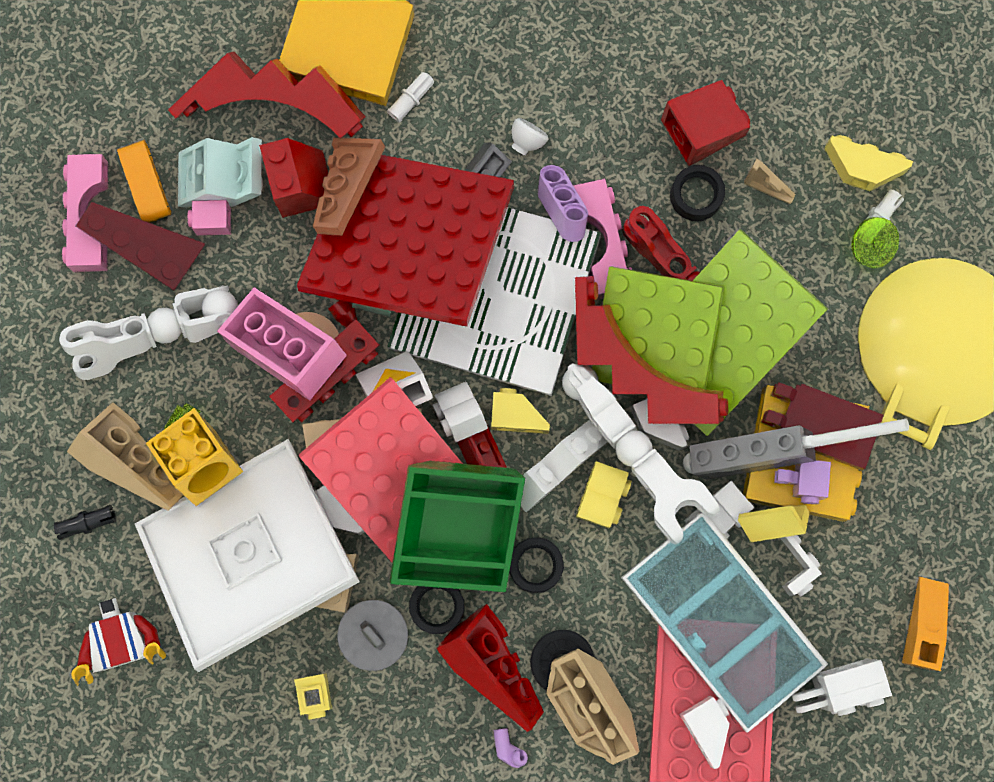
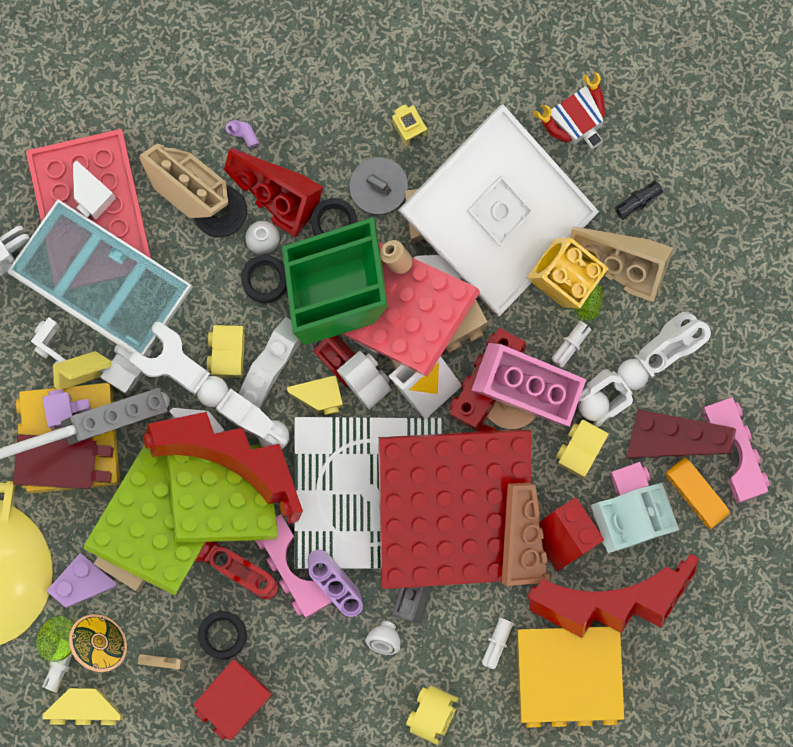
camera: 165 degrees right, 0 degrees up
(220, 384) = (571, 344): none -> white axle
(249, 265) = (582, 448): none -> light yellow brick
(380, 528) = (396, 257): none -> tan brick
(501, 40) = (432, 714): none -> light yellow brick
(523, 616) = (262, 237): none -> white brick
(833, 223) = (97, 643): none -> shield
(838, 293) = (80, 582): none -> lavender wing

